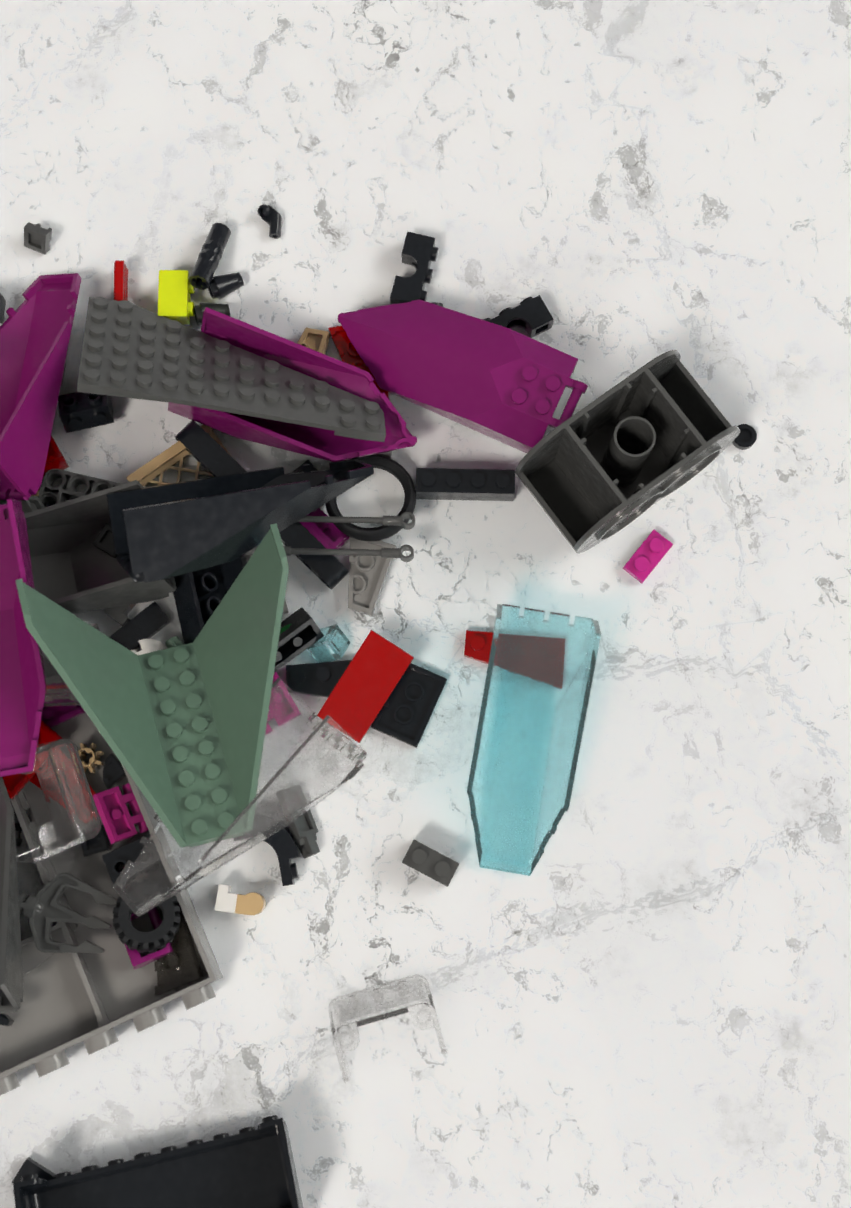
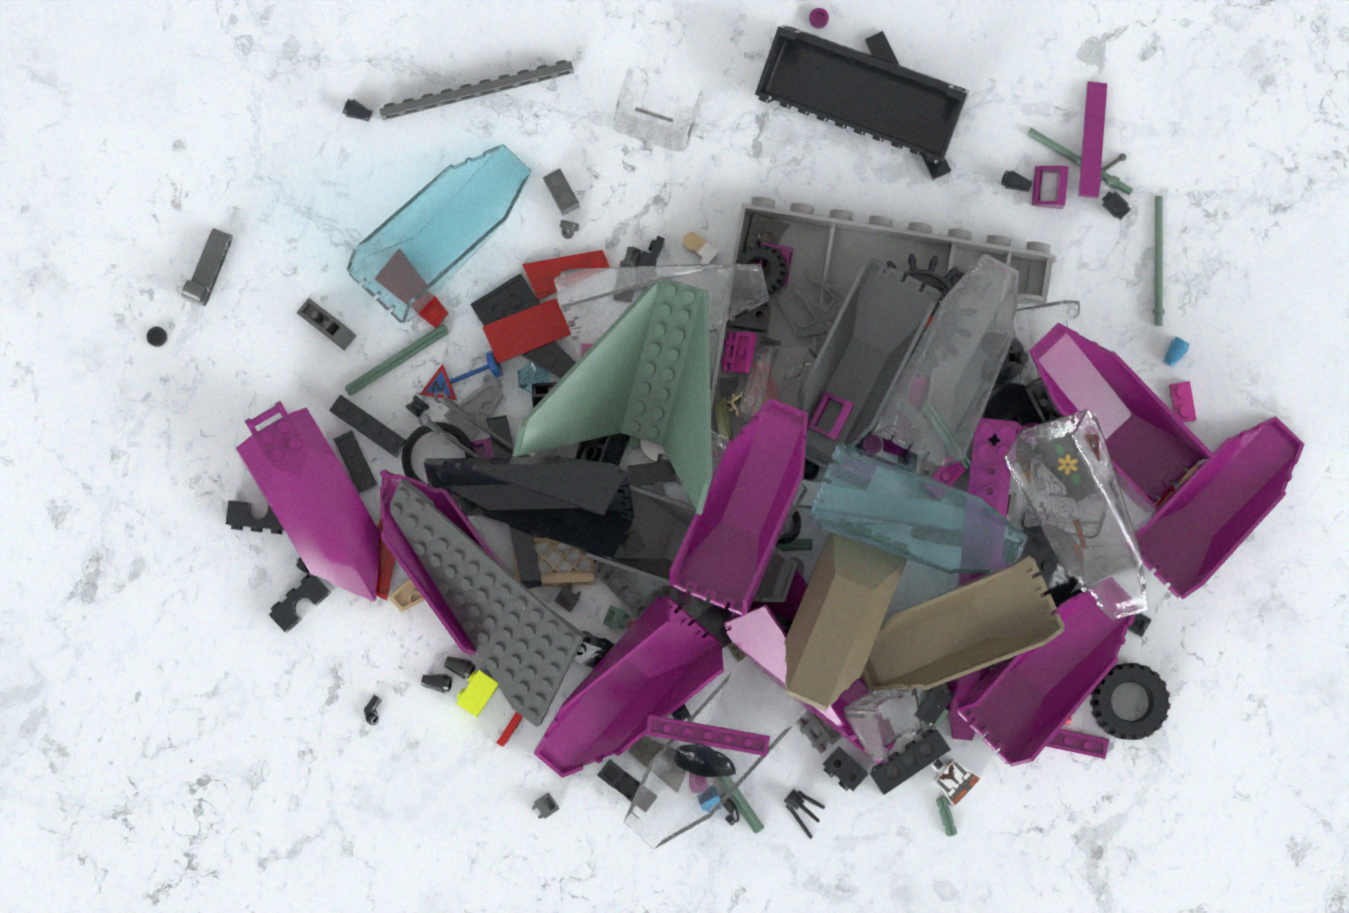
camera: 140 degrees left, 5 degrees up
(83, 458) = (614, 617): none -> sand green tile
(90, 729) = (723, 418): none -> olive tile
(144, 445) = (567, 598): none -> dark grey tile
(210, 256) = (434, 706): black axle -> none
(382, 768) = (542, 273): none -> red wing
(397, 832) = (570, 226): none -> dark grey tile
(420, 576) = (441, 382): none -> blue piece
(428, 537) = (417, 406): none -> black wheel
(454, 443) = (355, 461): none -> black tile
(484, 572) = (396, 359): none -> sand green axle
(592, 925) = (484, 88): none -> dark grey plate
(595, 561) = (326, 324): none -> dark grey slope
(625, 452) = (249, 361): dark grey brick -> none
(647, 556) = (280, 298): dark pink plate -> none
(711, 805) = (356, 110): none -> black cone
(742, 534) = (208, 268): none -> dark grey beam

